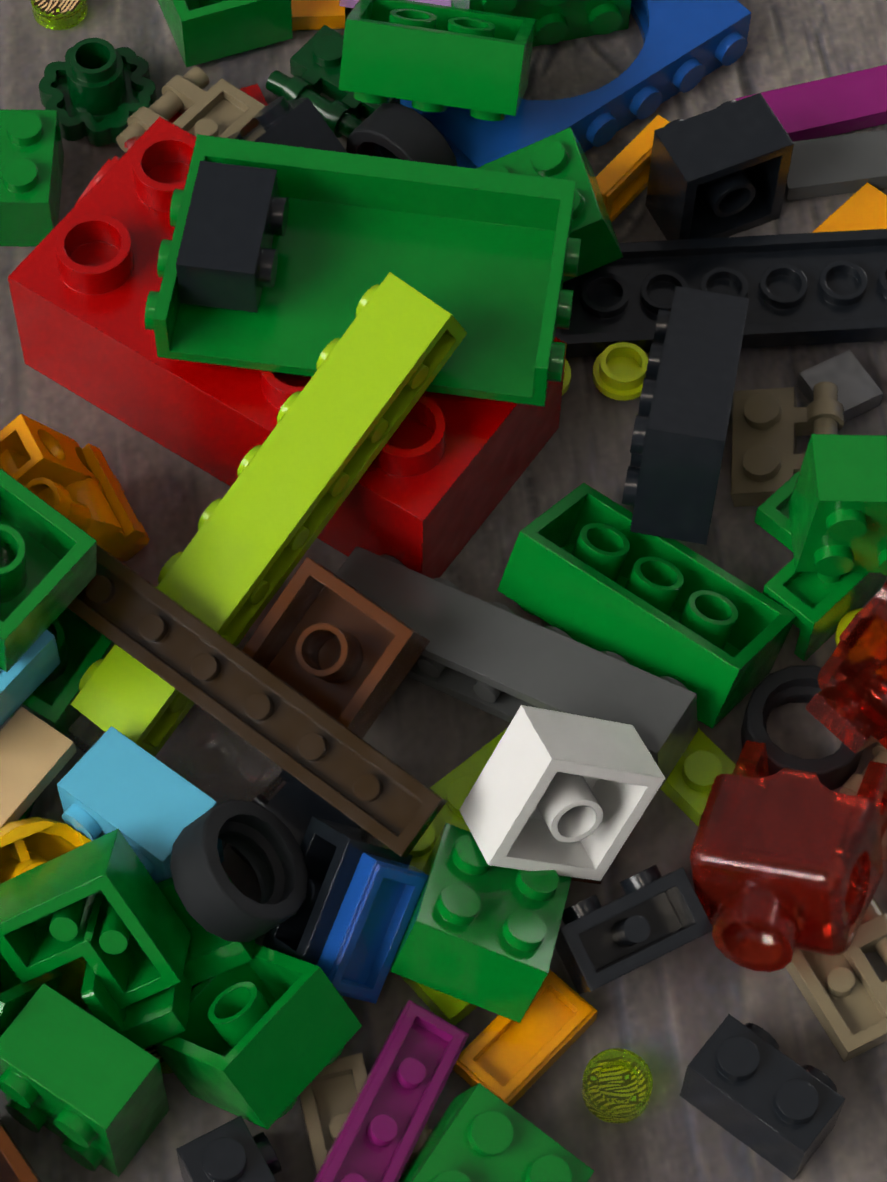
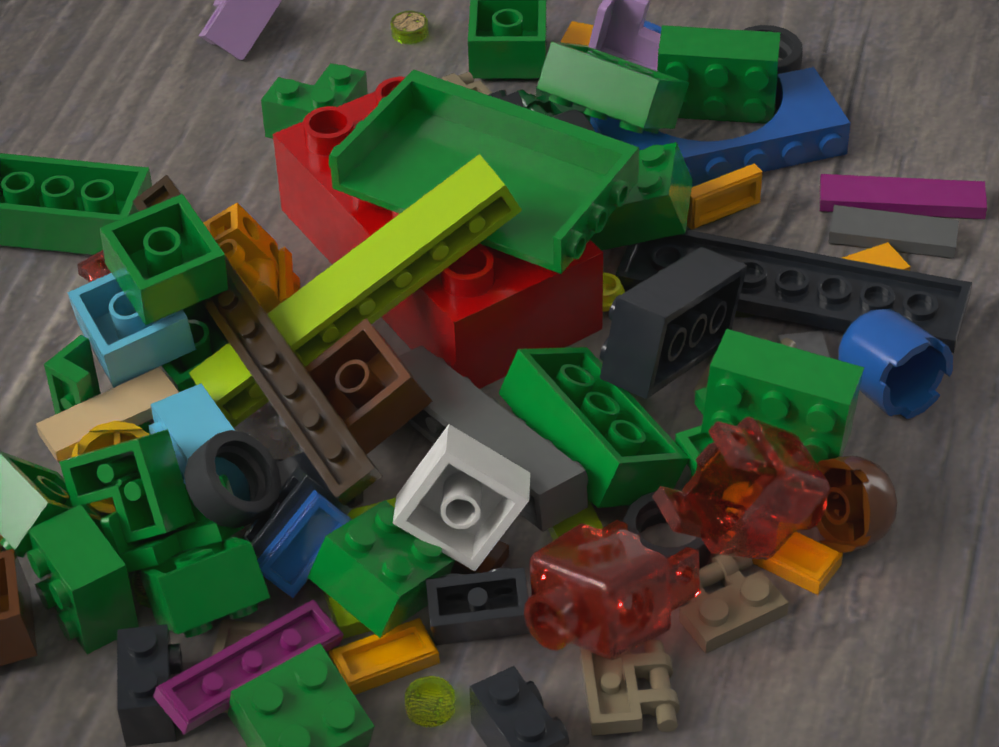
camera: 25 degrees right, 15 degrees down
(96, 90) = (399, 60): dark green plant -> none
(230, 237) = (402, 126): black brick -> none
(719, 171) = (778, 201): black brick -> none

